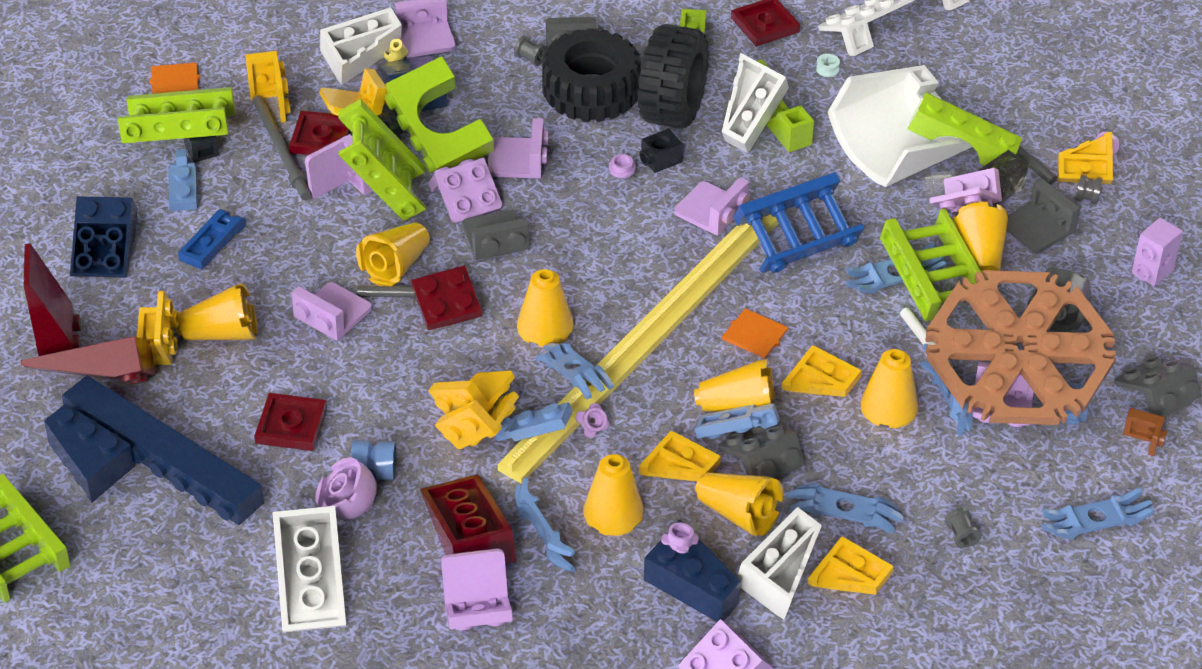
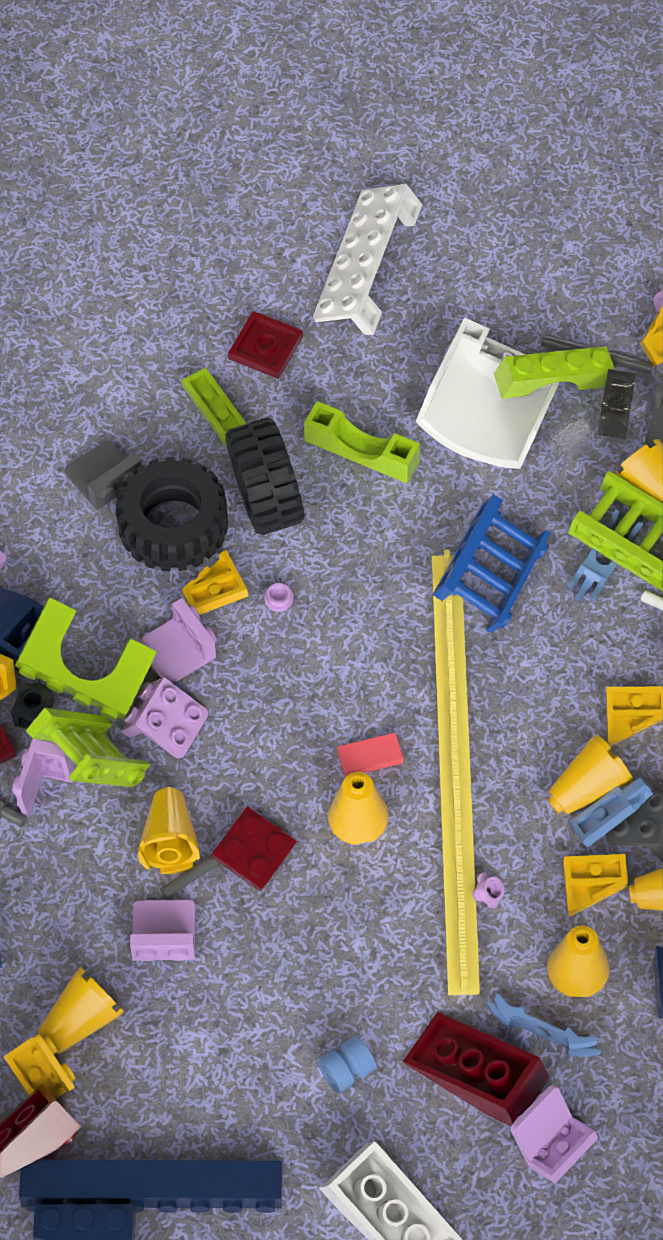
camera: 35 degrees left, 15 degrees up
(290, 421) = (235, 1074): dark red plate -> none
(348, 488) = (356, 1113): lavender cylinder -> none
(472, 422) = (406, 959): yellow bracket -> none
(482, 387) = (375, 934): yellow bracket -> none
(496, 234) = (234, 748): dark grey bracket -> none
(529, 50) = (84, 517): dark grey bush -> none
(535, 423) = (451, 932): medium blue hinge -> none
(576, 376) = (448, 855): medium blue piece -> none
(581, 136) = (215, 586): none -> yellow wing
(592, 293) = (370, 754): none -> coral tile
(661, 150) = (301, 548): black brick -> none
(712, 206) = (396, 589): lavender bracket -> none
(752, 102) = (351, 458): white wedge -> none
(755, 333) = (539, 702): orange piece -> none
(827, 59) = (354, 365): light aqua bush -> none
(968, 189) = (612, 437): lavender bracket -> none

